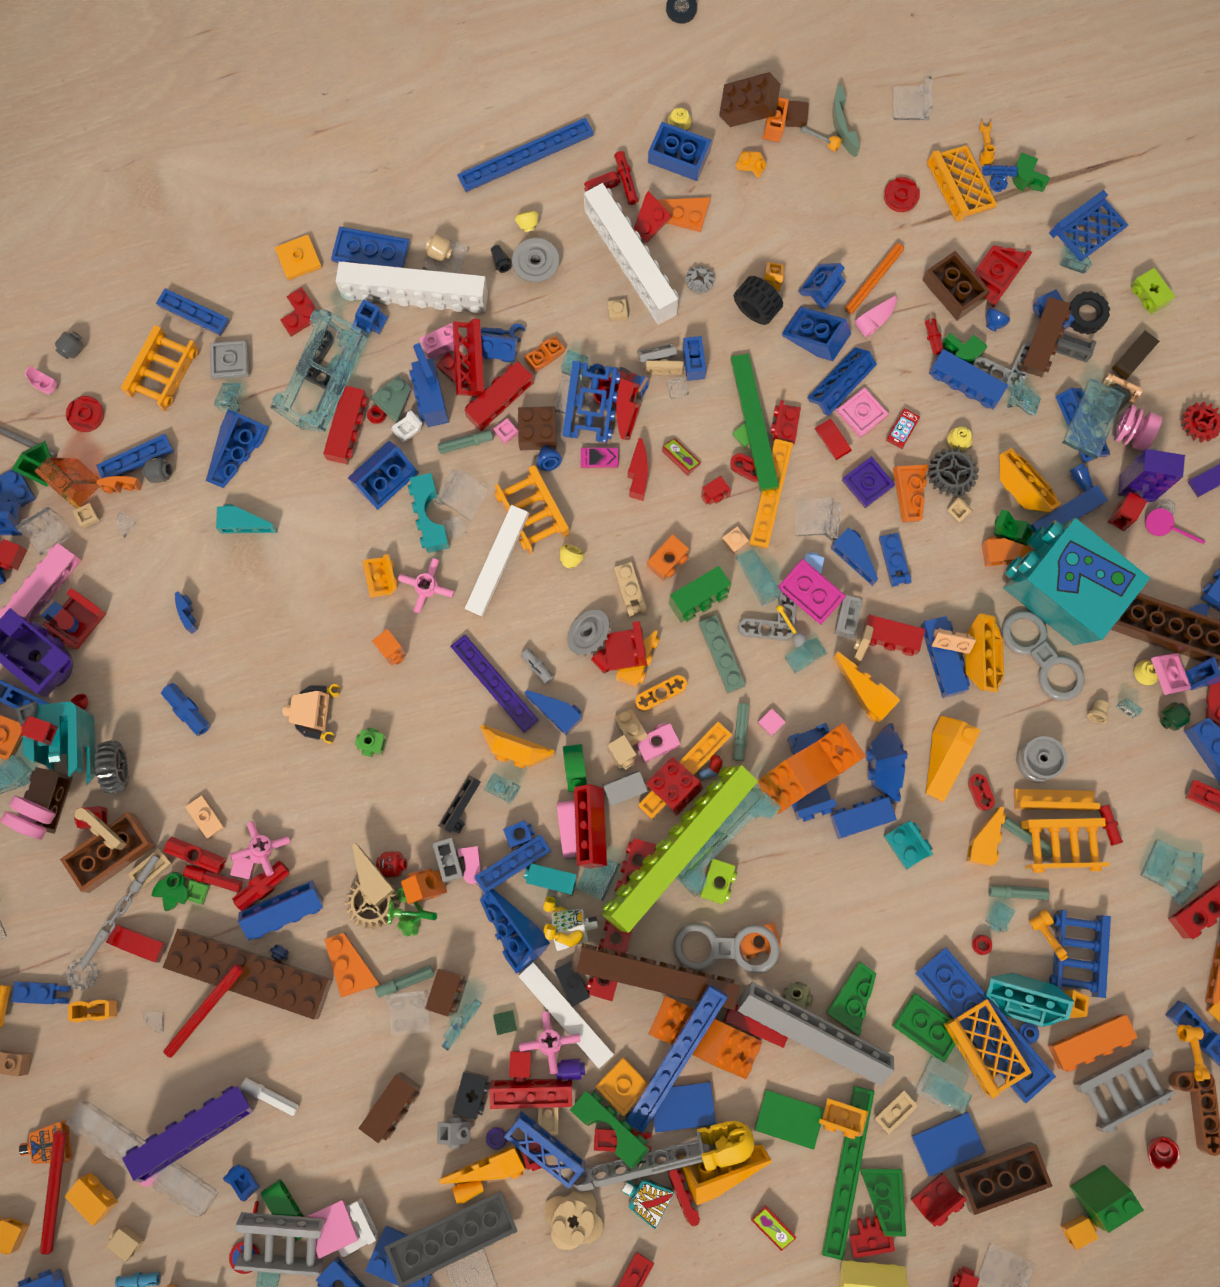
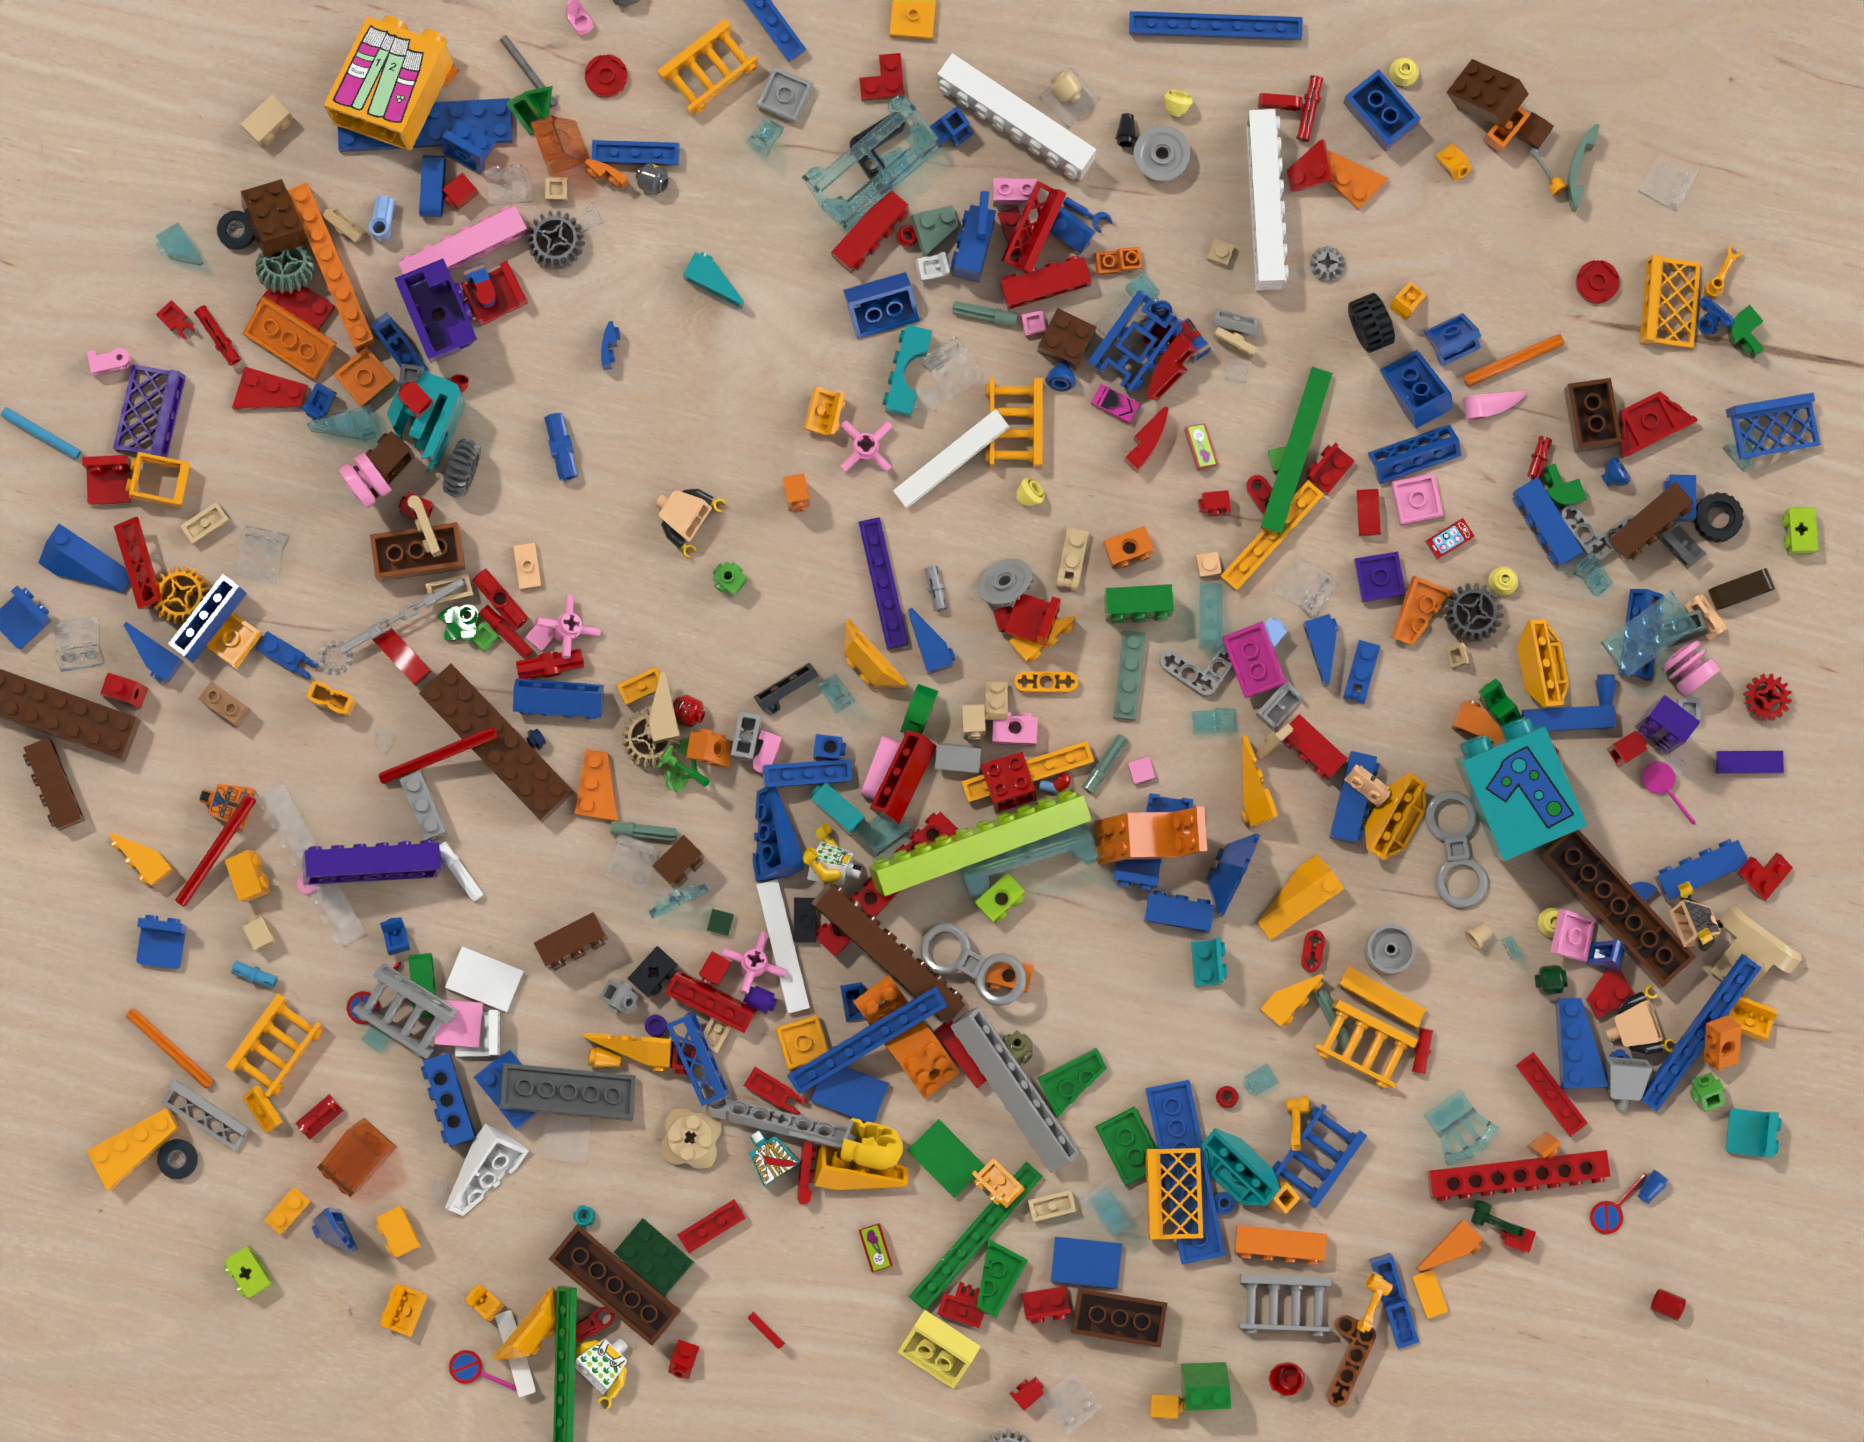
camera: 25 degrees right, 5 degrees up
(100, 541) = (548, 235): none -> flat silver gear
(213, 1059) = (423, 806): none -> light grey brick
(234, 444) = (747, 189): blue wedge -> none
(334, 1177) = (484, 979): none -> white tile
(341, 866) = (639, 686): none -> light orange plate
(369, 248) = (993, 49): blue plate -> none
(629, 1147) = (760, 1049): green arch -> none
(642, 1026) = (849, 994): none -> blue slope
(694, 358) = (1270, 349): blue brick -> none
(798, 638) = (1214, 700): hinge -> none
(1009, 891) = (1283, 1061): sand green axle -> none

